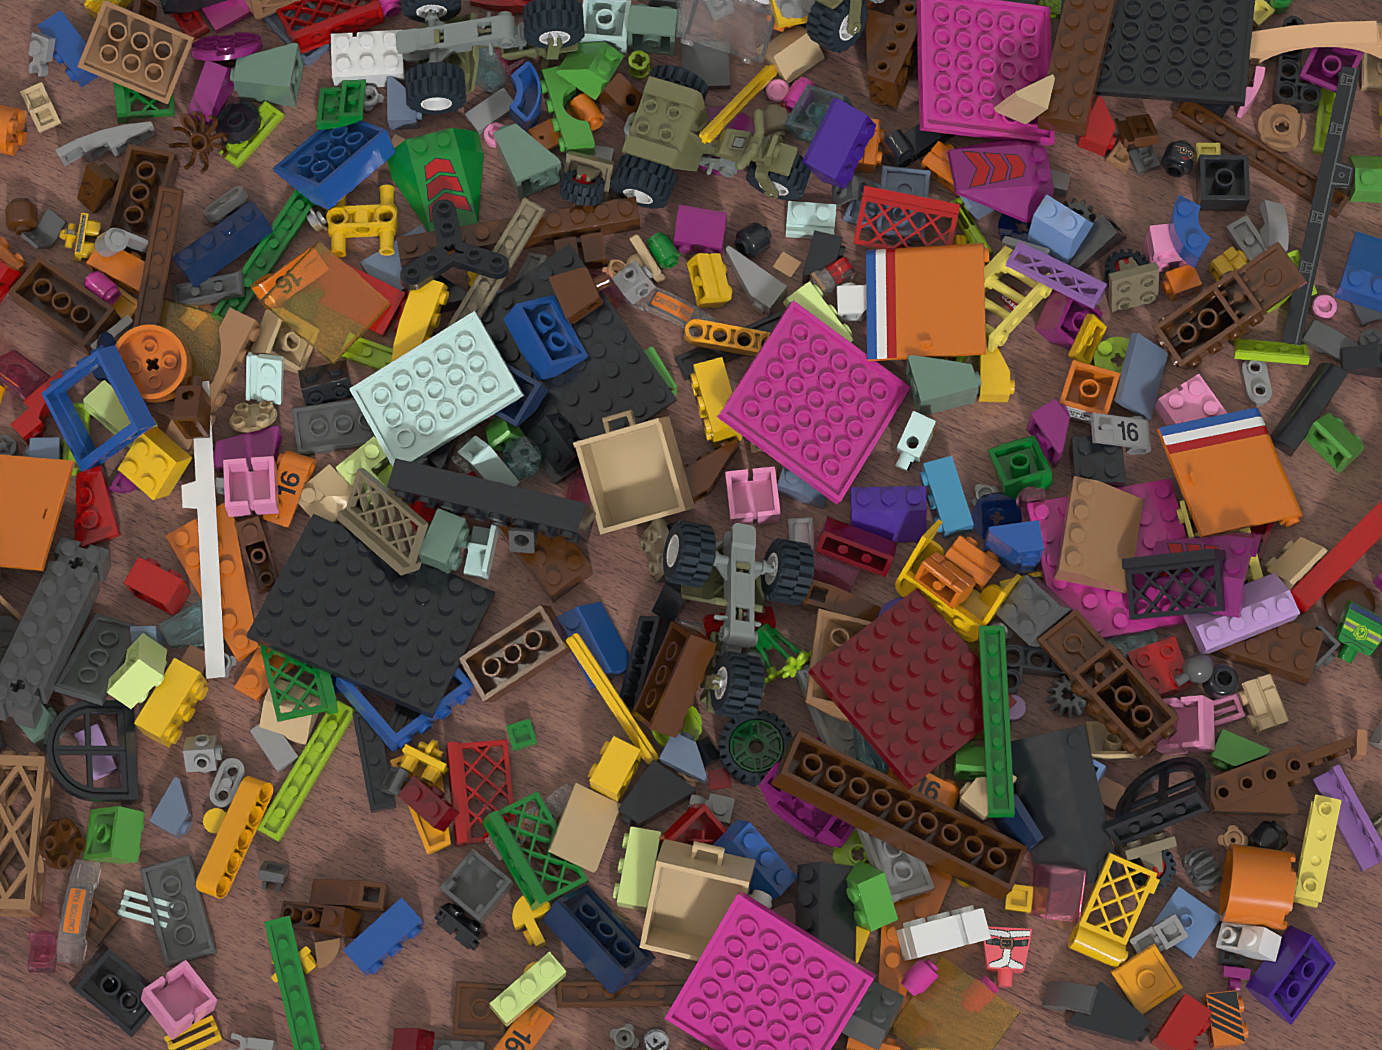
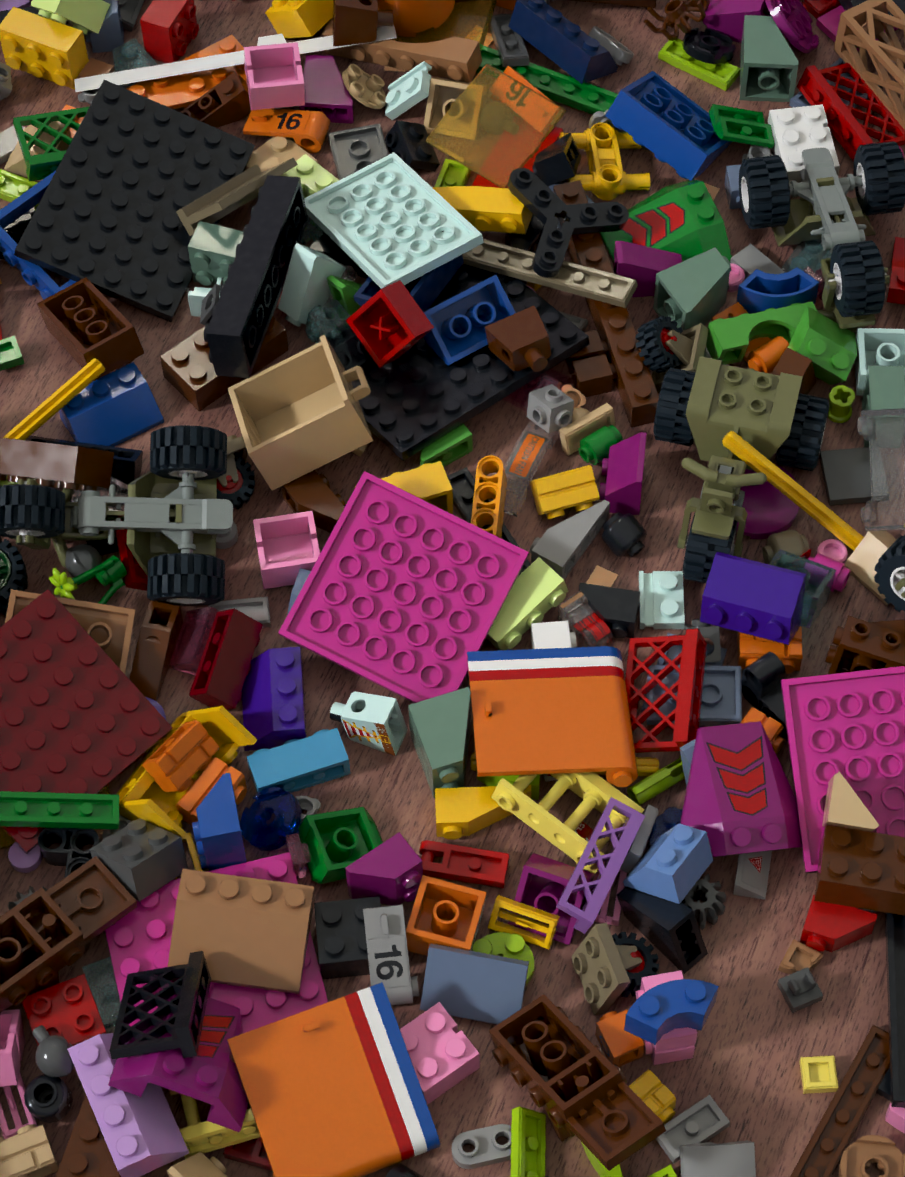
camera: 85 degrees right, 15 degrees down
(369, 255) = (557, 161): none -> black slope
(492, 193) = (642, 265): none -> magenta slope
(558, 393) = (389, 323): none -> red brick
(1036, 379) = (464, 863): none -> red plate
(1137, 131) = (834, 969): reddish brown plate -> none
(1178, 158) = (803, 1028): black head -> none
(1222, 182) = (772, 1084): black brick -> none

